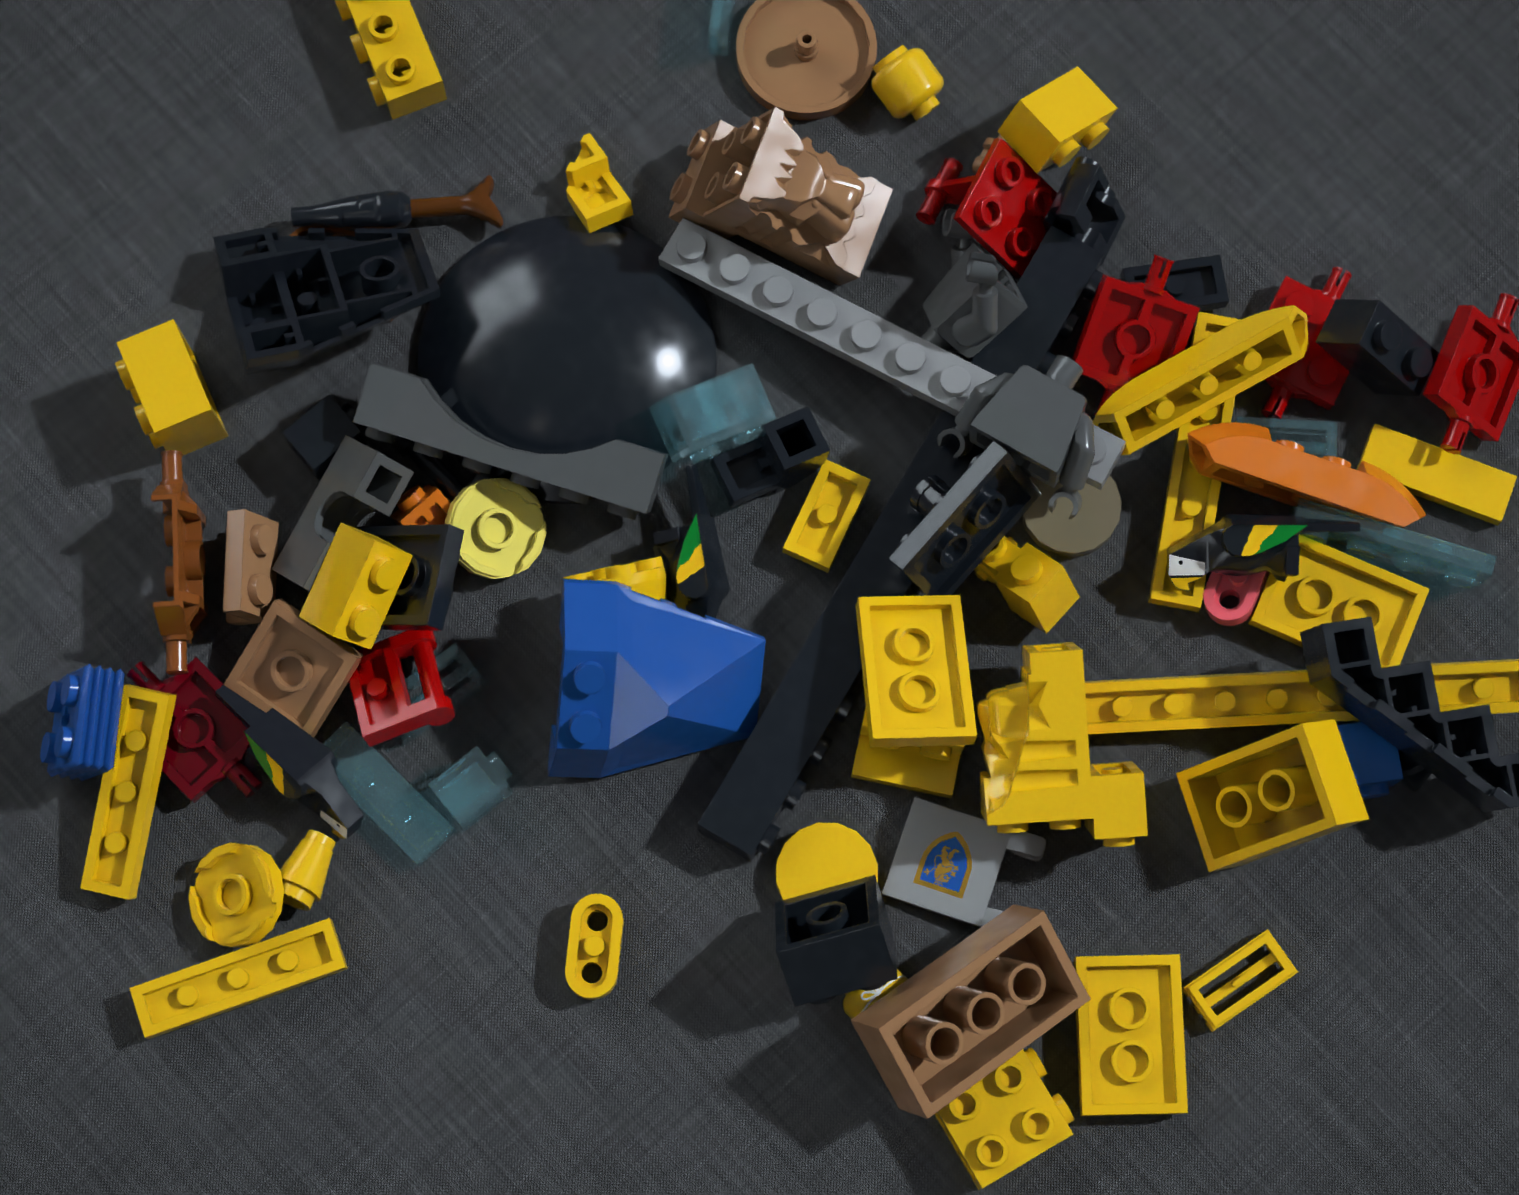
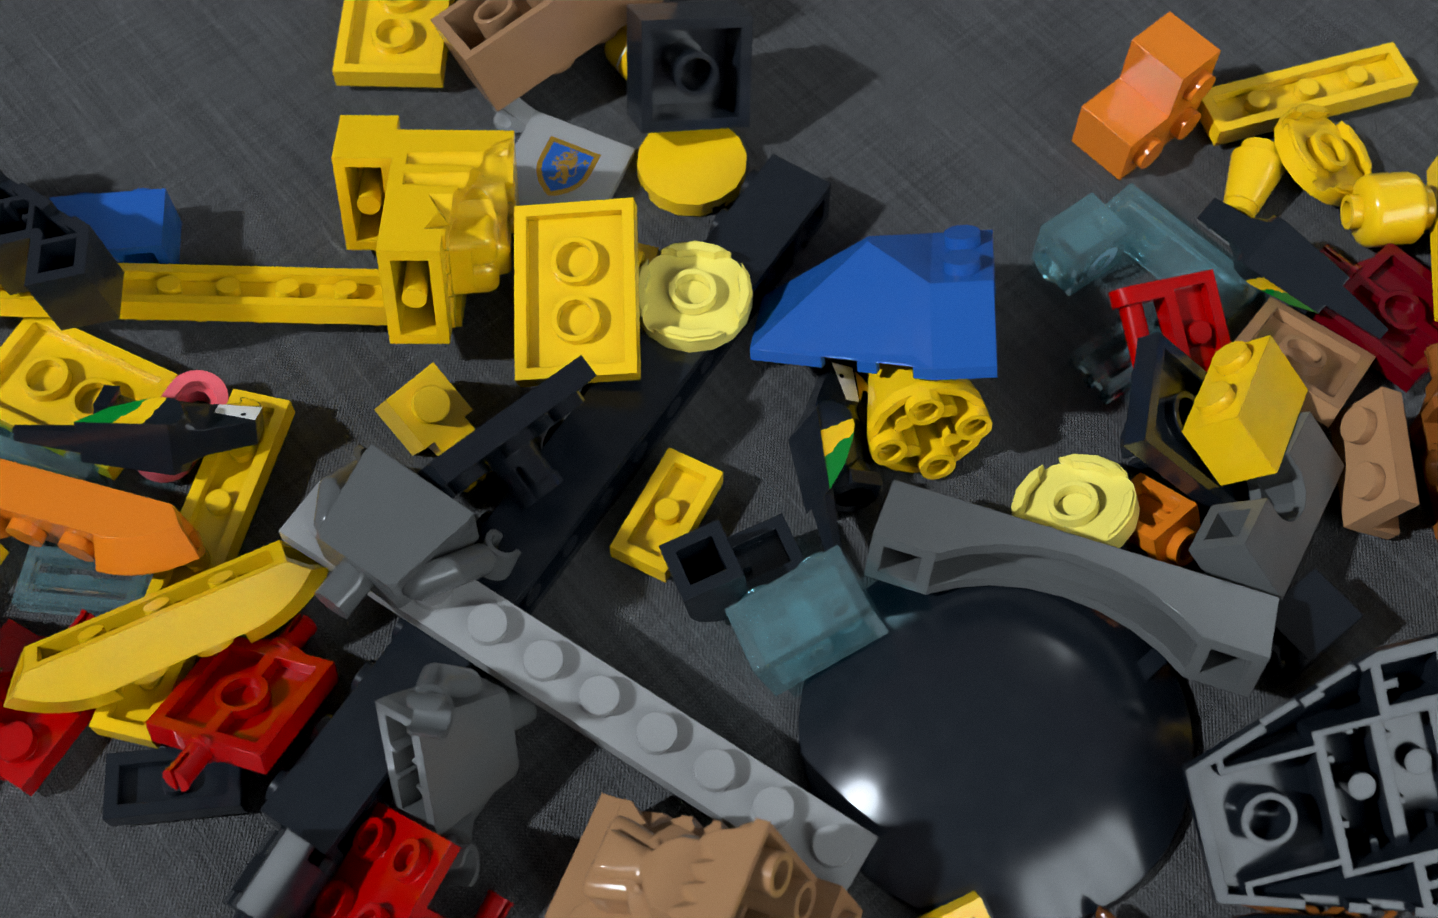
camera: 175 degrees left, 15 degrees down
(188, 830) = (1388, 209): none -> yellow head
(401, 941) = (1151, 100): none -> orange brick
(594, 947) = (938, 107): yellow plate -> none
(816, 691) = (694, 297): none -> light yellow tile
(1203, 1005) = (280, 71): yellow tile -> none
(1272, 795) = (194, 166): yellow brick -> none

